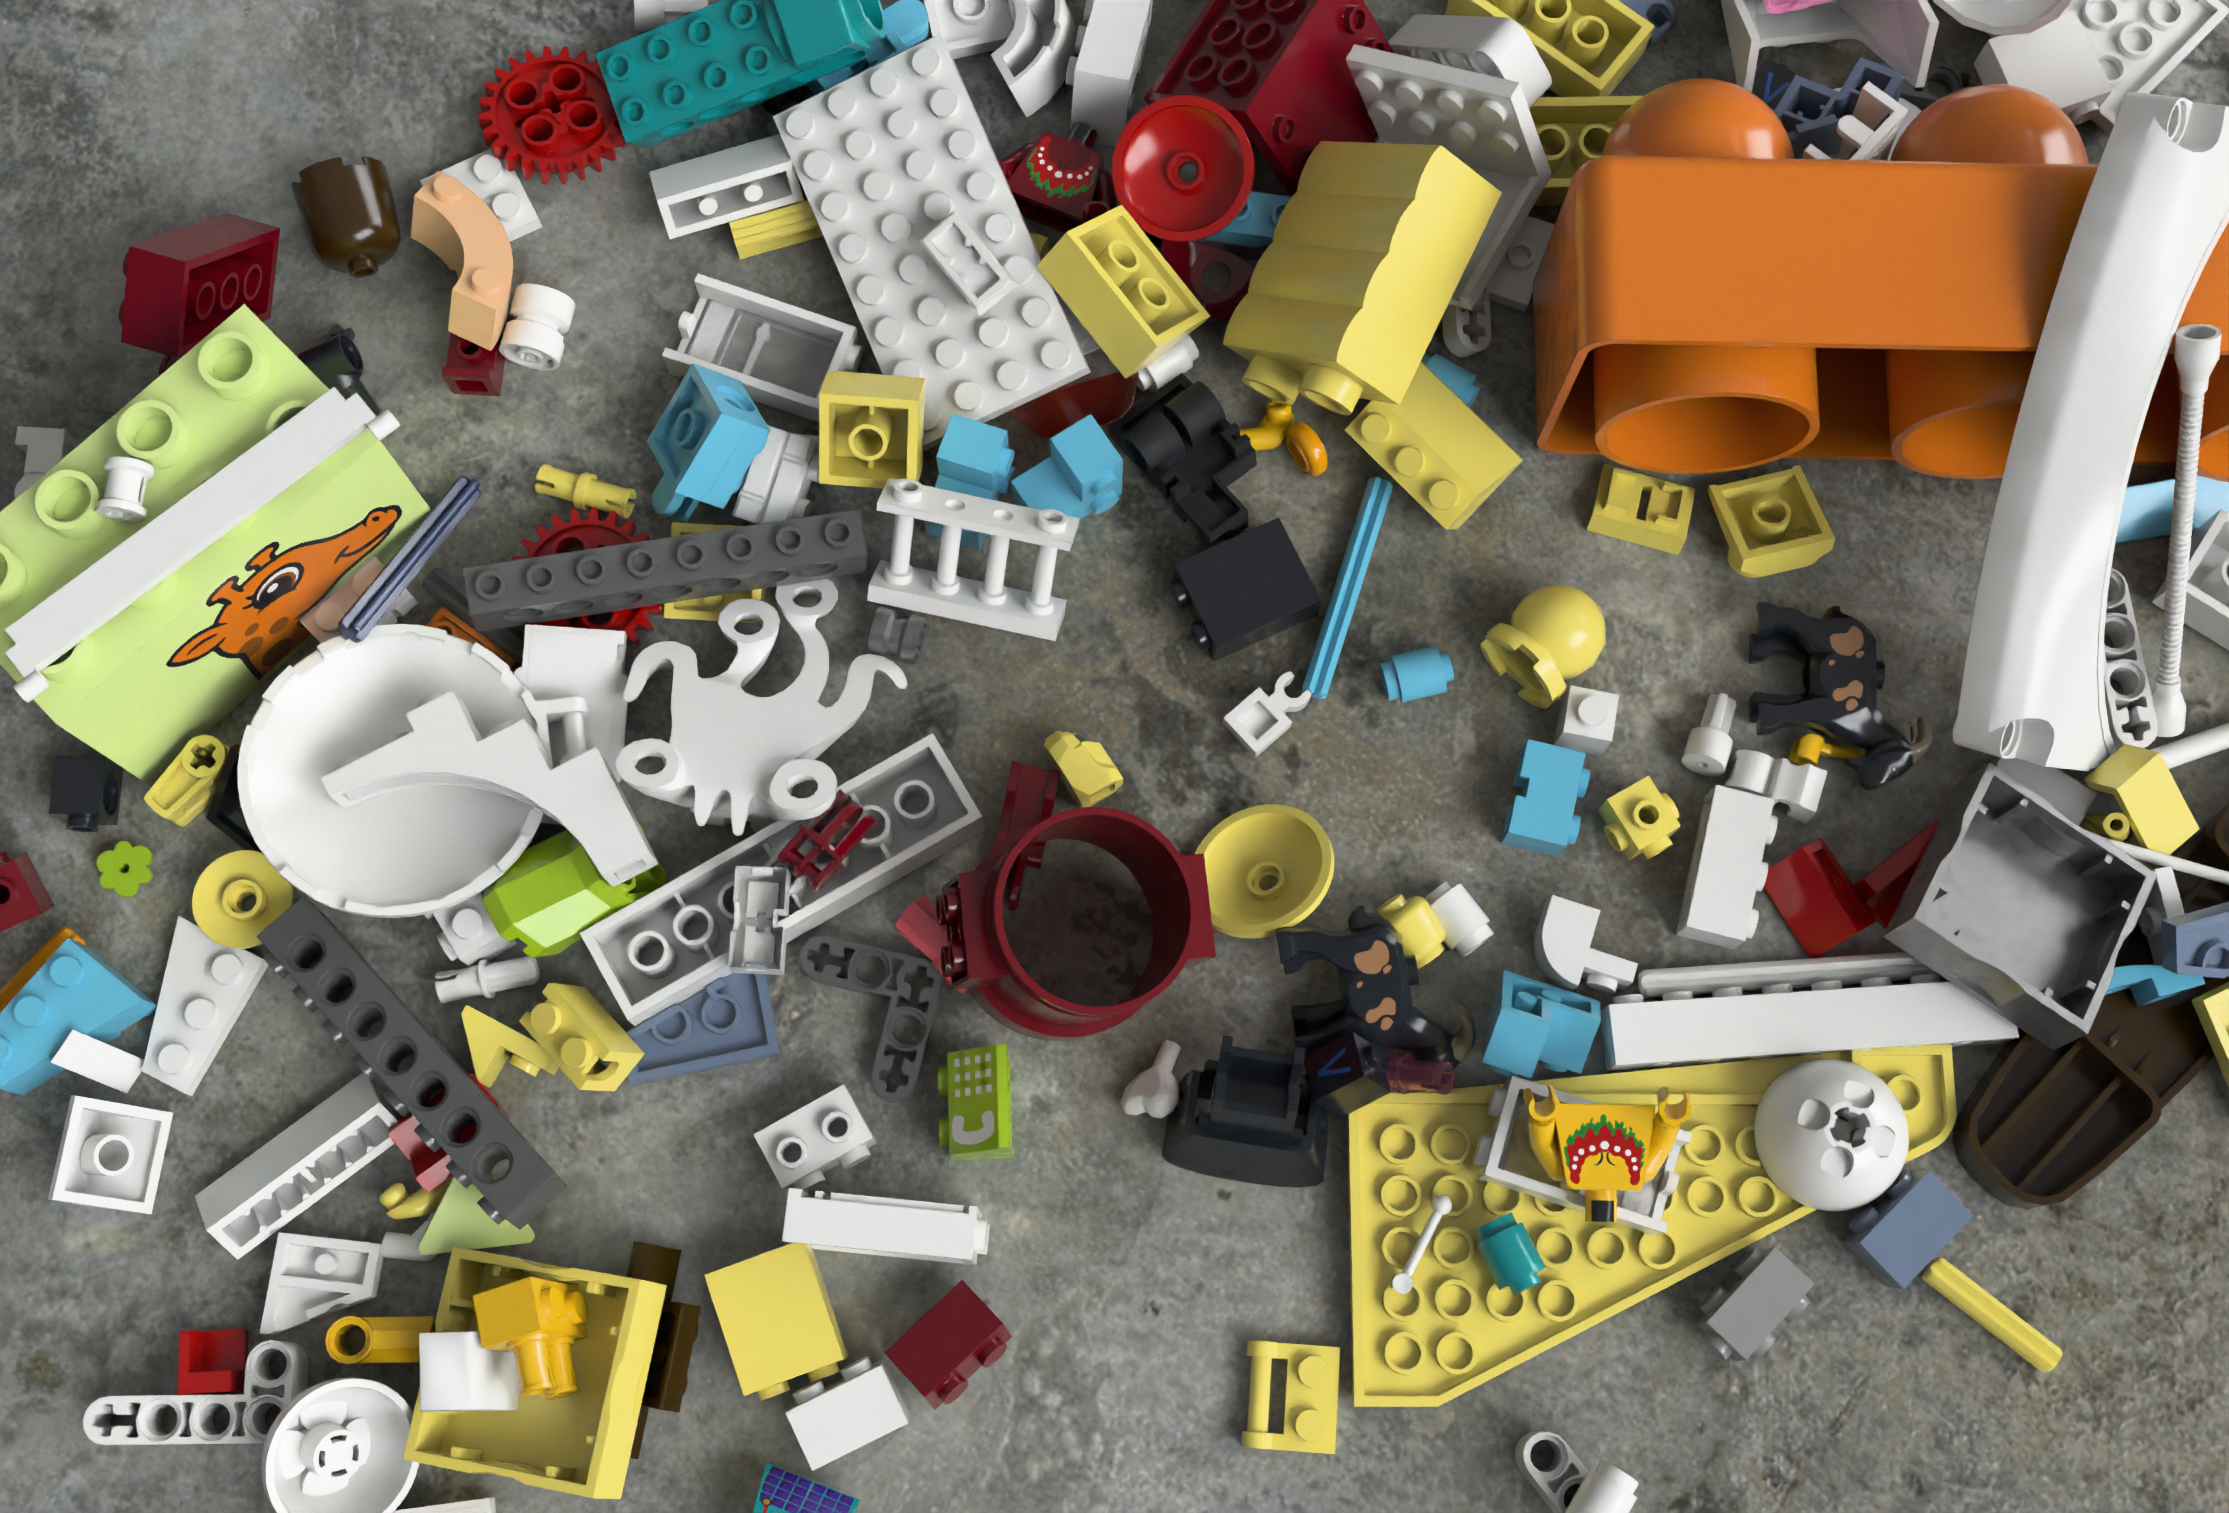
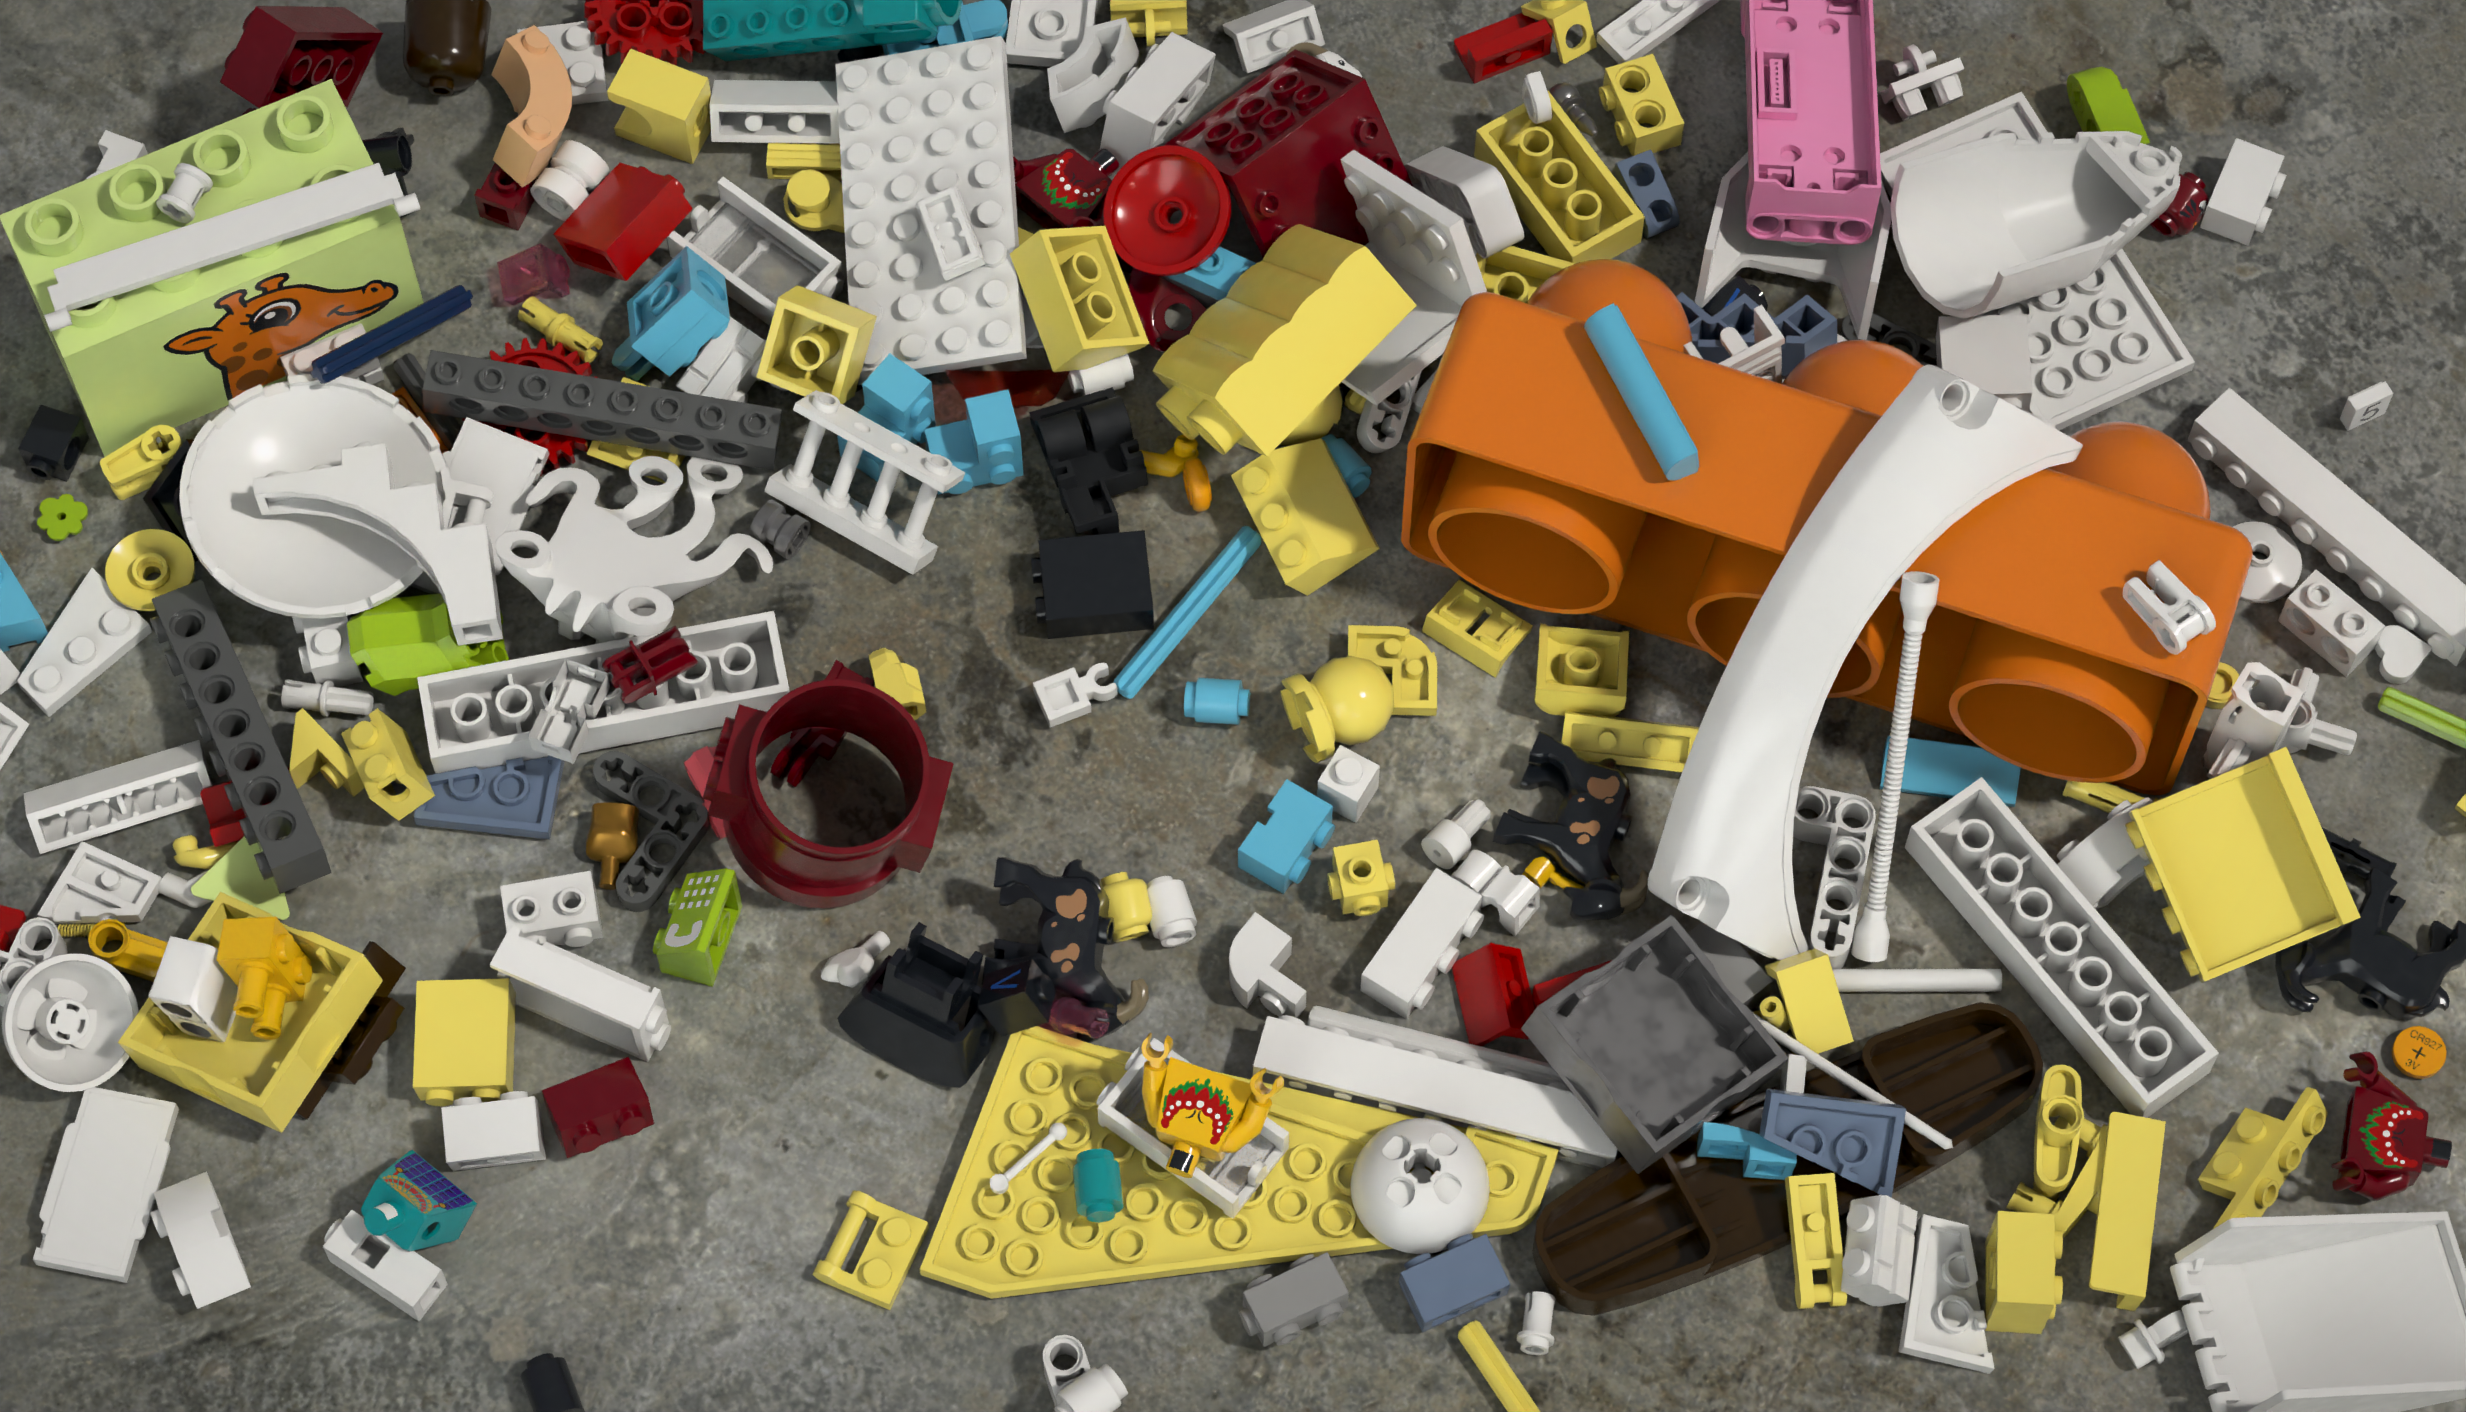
camera: 20 degrees right, 10 degrees down
(311, 1330) = (72, 932): none -> light yellow leg
(535, 440) = (532, 274): none -> clear pink bracket
(605, 216) = (663, 105): none -> light yellow piece
(611, 353) = (623, 221): none -> red brick
(803, 269) = (816, 201): none -> light yellow piece
(849, 1034) = (612, 839): none -> pearl gold piece
(1259, 850) = (1012, 813): light yellow dish -> none
(1538, 1023) = (1201, 1011): medium azure brick -> none
(1584, 565) = (1405, 658): none -> light yellow plate
(1822, 217) = (1642, 393): none -> medium azure brick
(1848, 580) = (1628, 741): none -> light yellow plate
(2000, 1238) = (1537, 1323): none -> white pin

